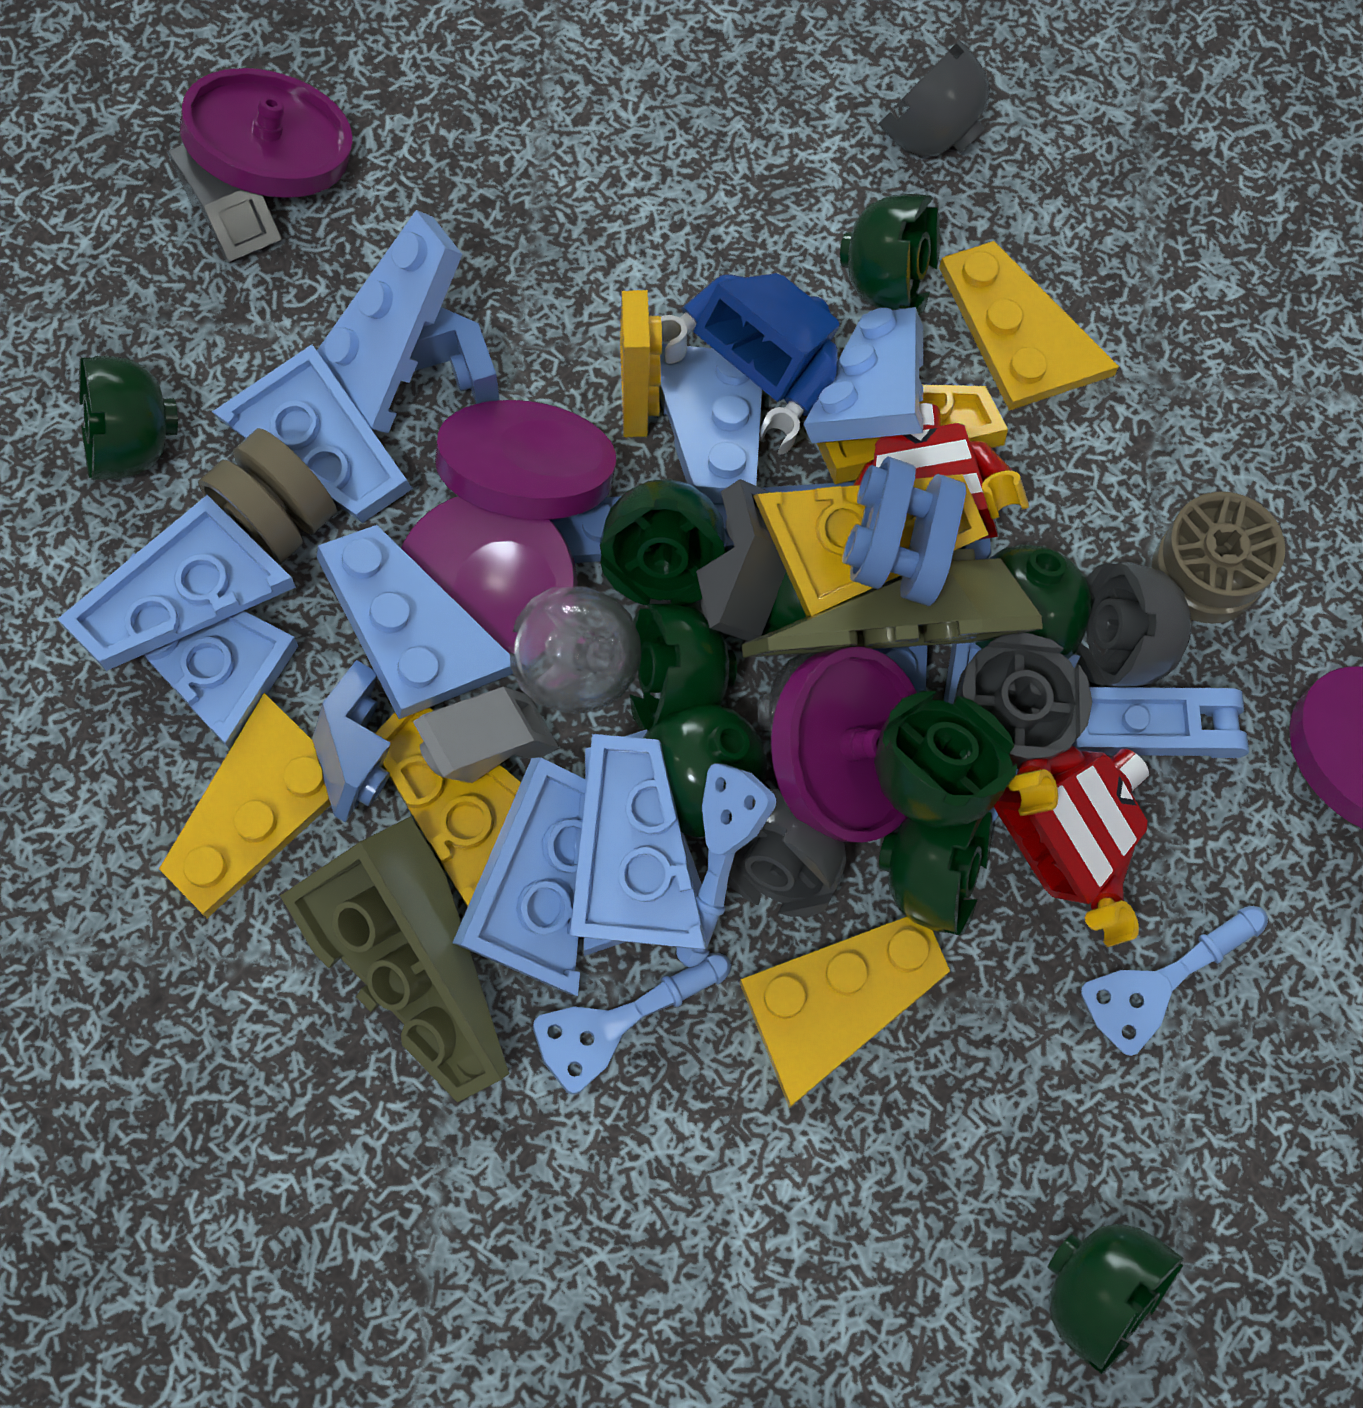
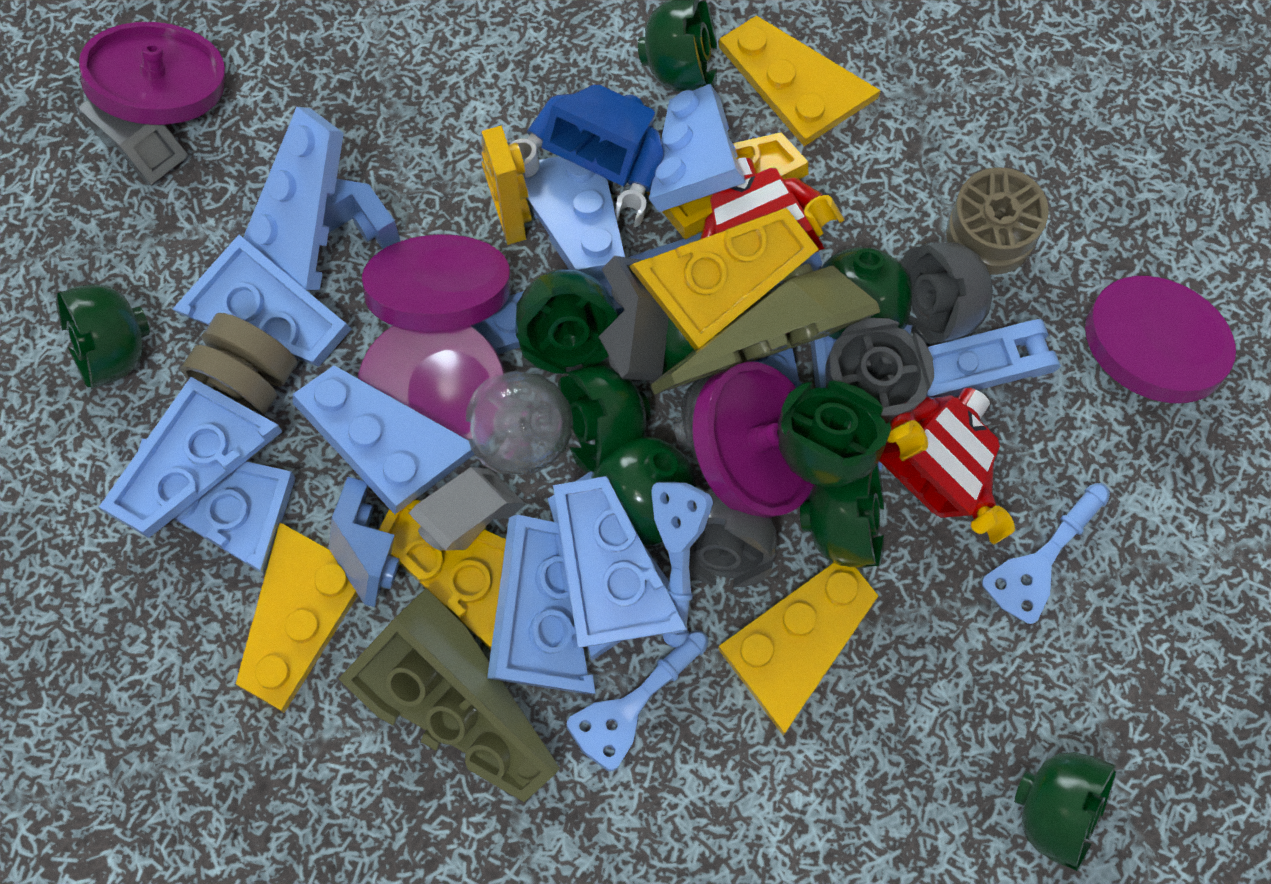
camera: 10 degrees left, 0 degrees up
(874, 545) = (735, 278): medium blue brick -> none

